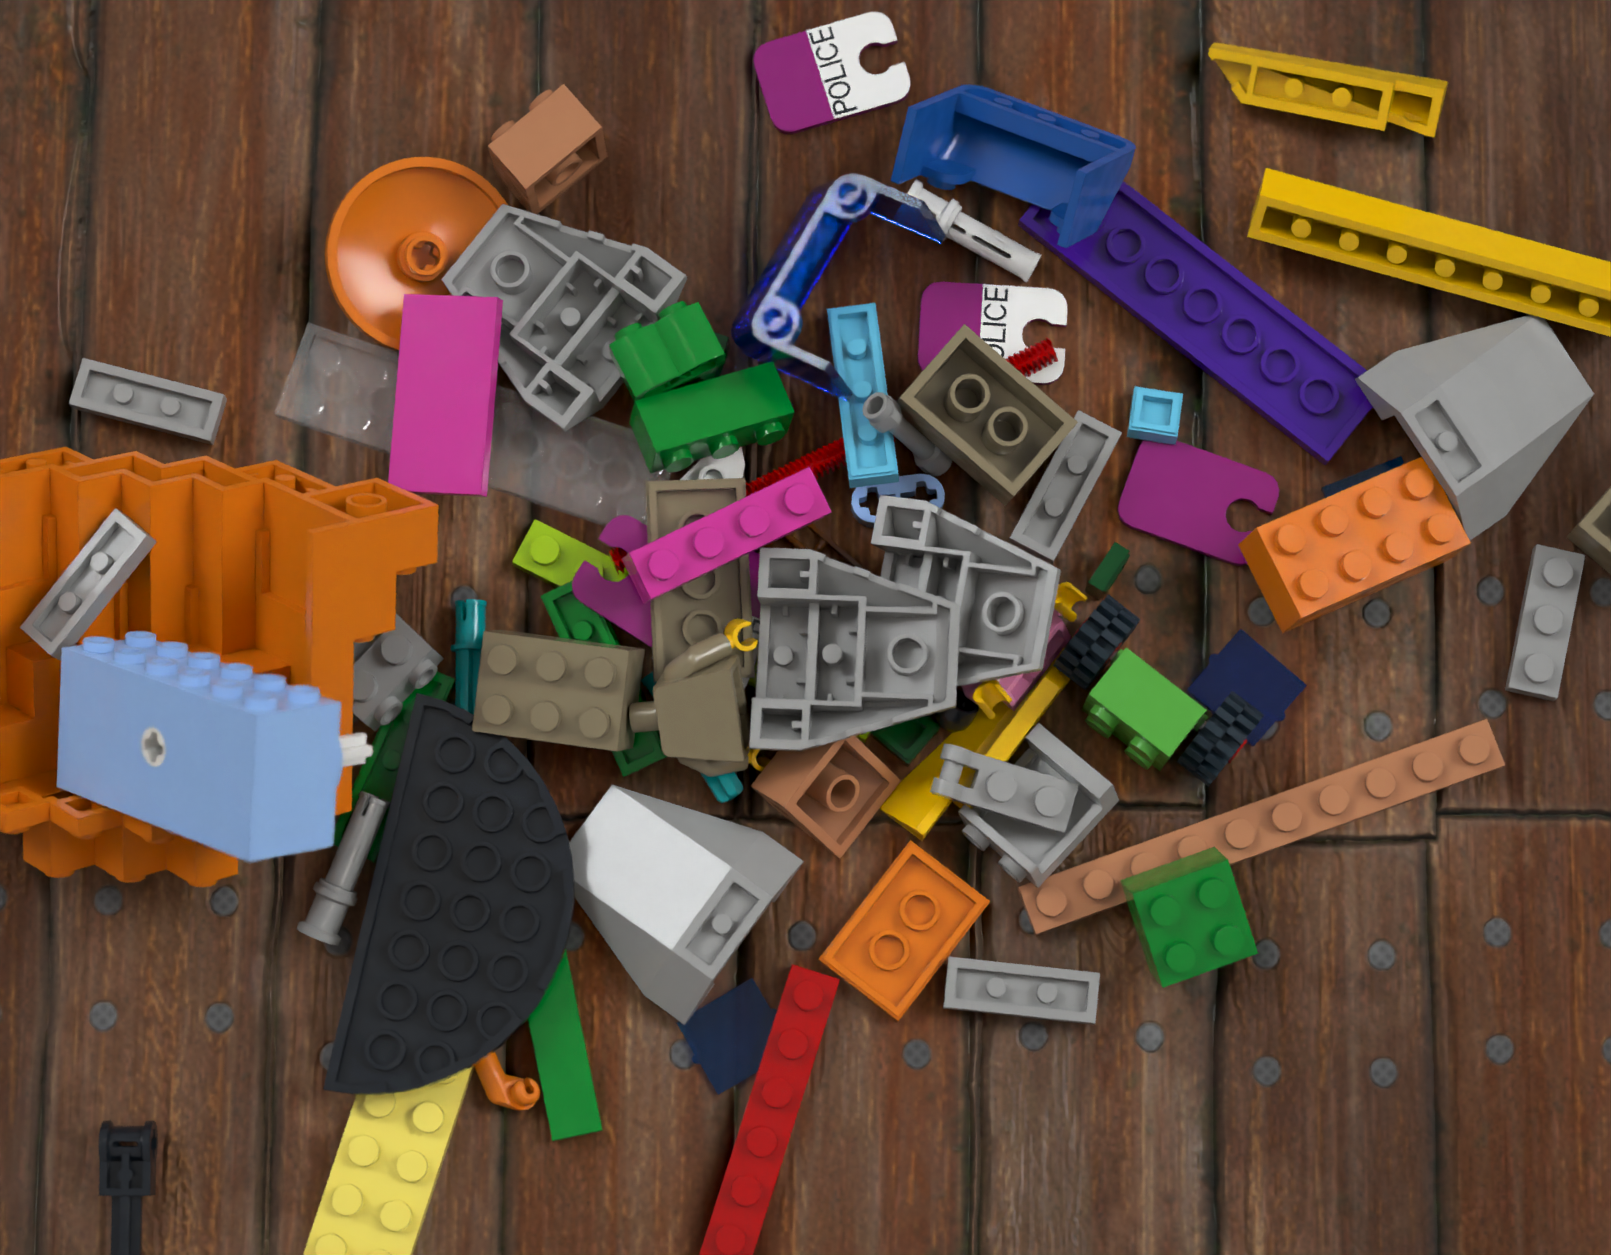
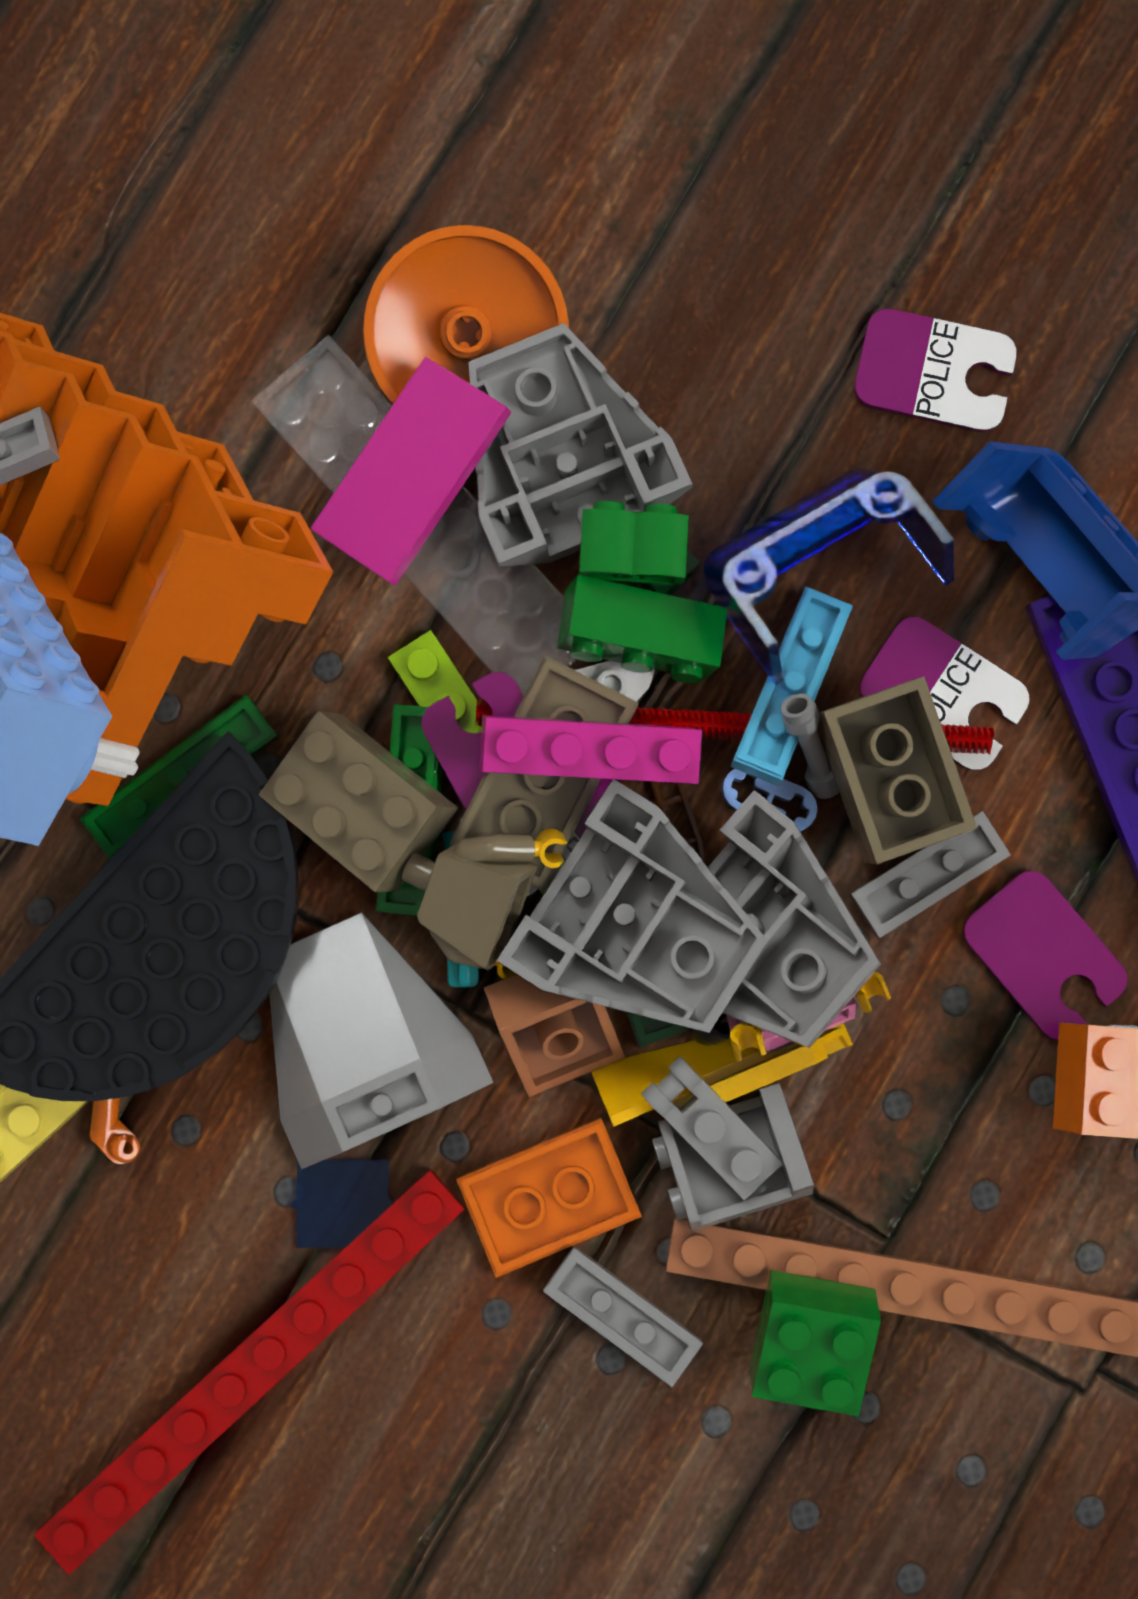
camera: 30 degrees right, 5 degrees up
(148, 401) = (146, 326): light grey plate -> none
(337, 890) = (60, 868): light grey pin -> none
(389, 672) = (217, 694): light grey plate -> none
(468, 646) = (315, 696): teal axle -> none
(547, 149) = (633, 294): nougat brick -> none
(564, 1060) = (177, 1138): green tile -> none
(1022, 260) = (967, 560): white pin -> none
(1107, 571) = (924, 976): dark green tile -> none
(1144, 705) = (885, 1128): brick -> none
(1155, 415) = (1050, 855): medium azure tile -> none
(1252, 675) = (989, 1153): clear blue piece -> none

